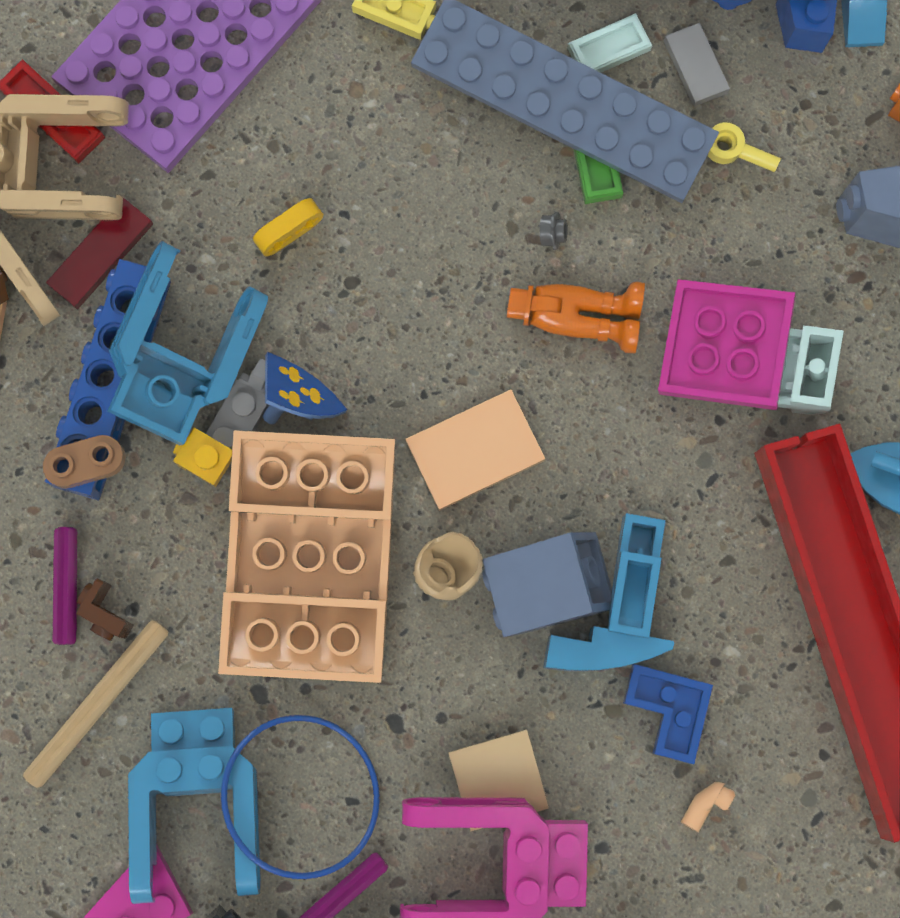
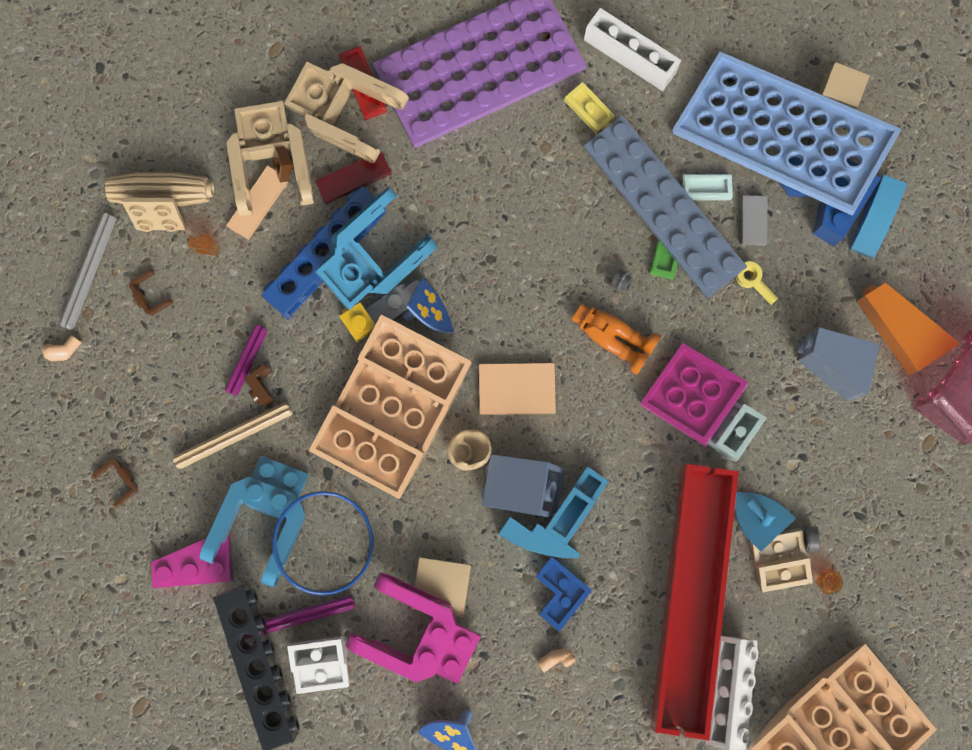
camera: 25 degrees right, 0 degrees up
(83, 463) = (287, 294): medium nougat plate -> none
(288, 227) = (468, 210): yellow beam -> none

